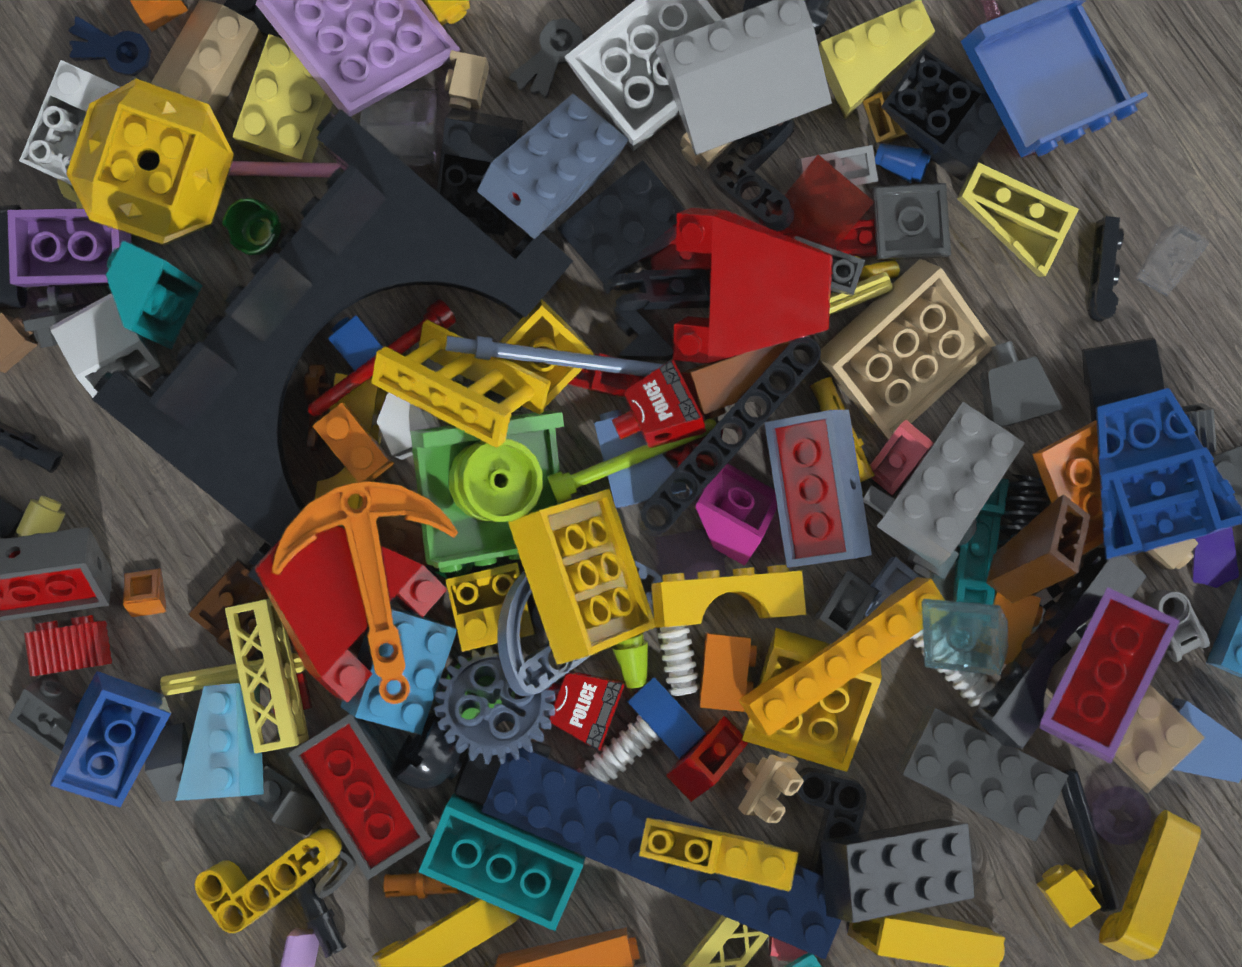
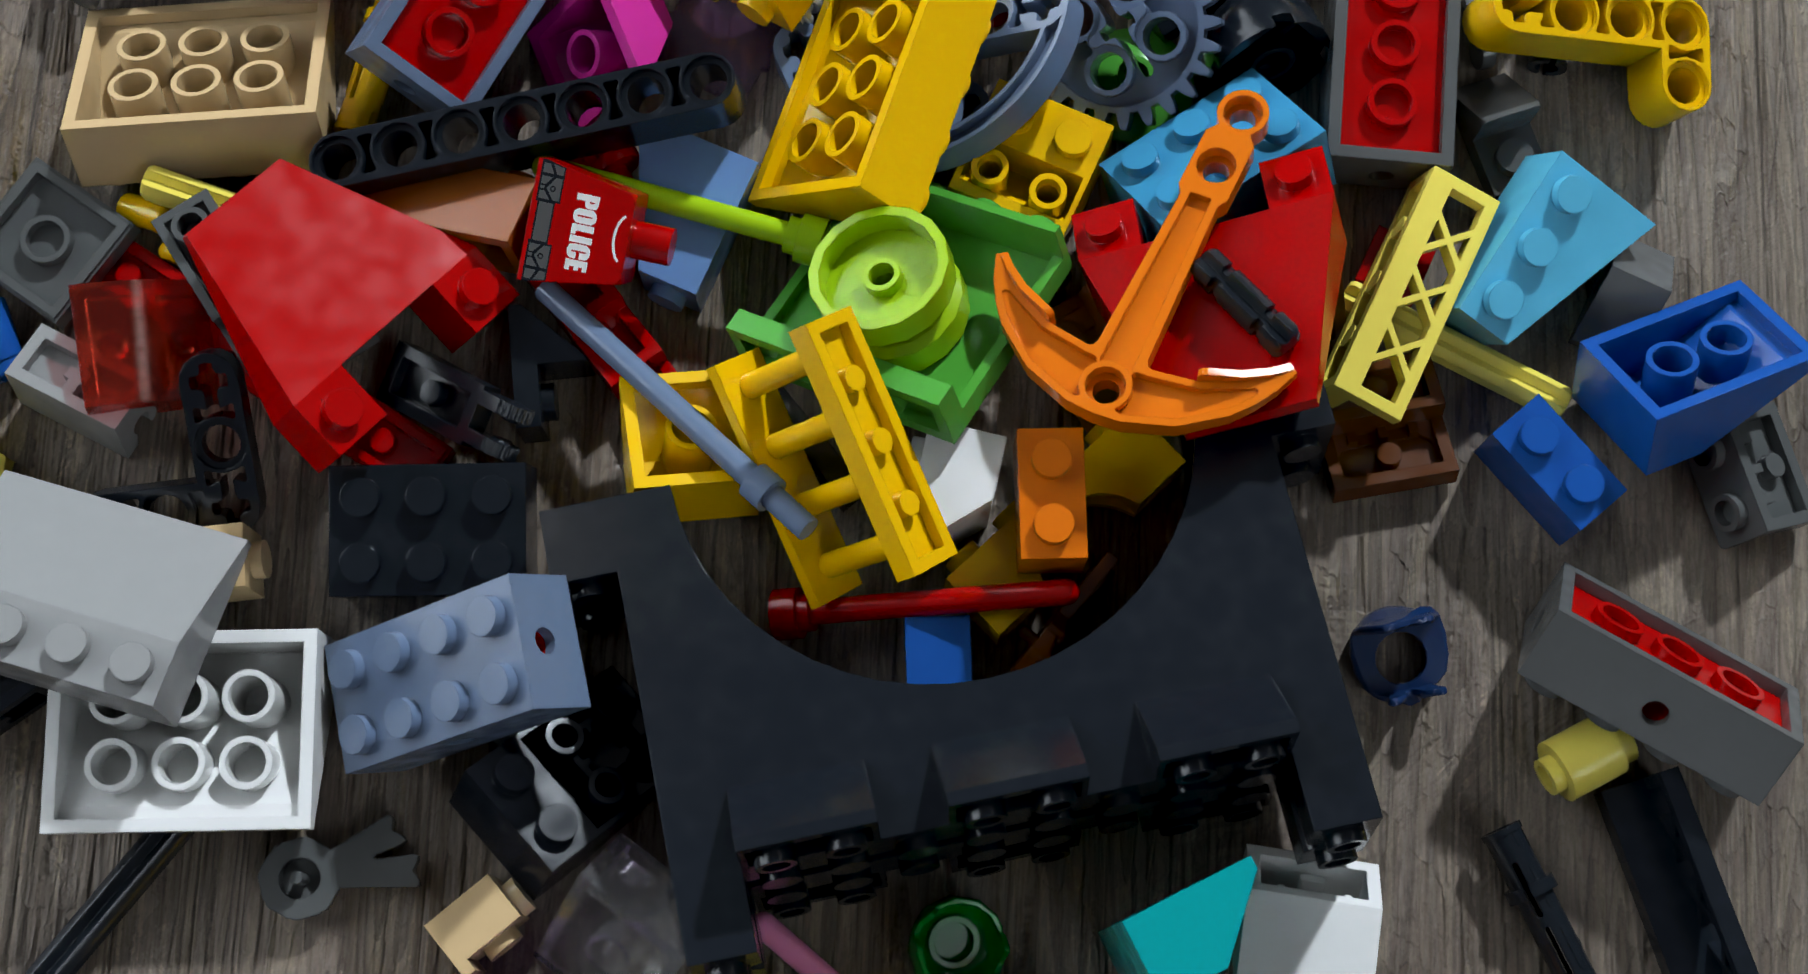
camera: 145 degrees left, 10 degrees down
(67, 647) = (1665, 553): red brick -> none
(144, 593) = (1500, 554): orange slope -> none
(145, 645) = (1550, 470): none -> blue brick
(170, 516) = (1374, 627): none -> dark blue piece
(322, 591) = (1245, 303): none -> black axle

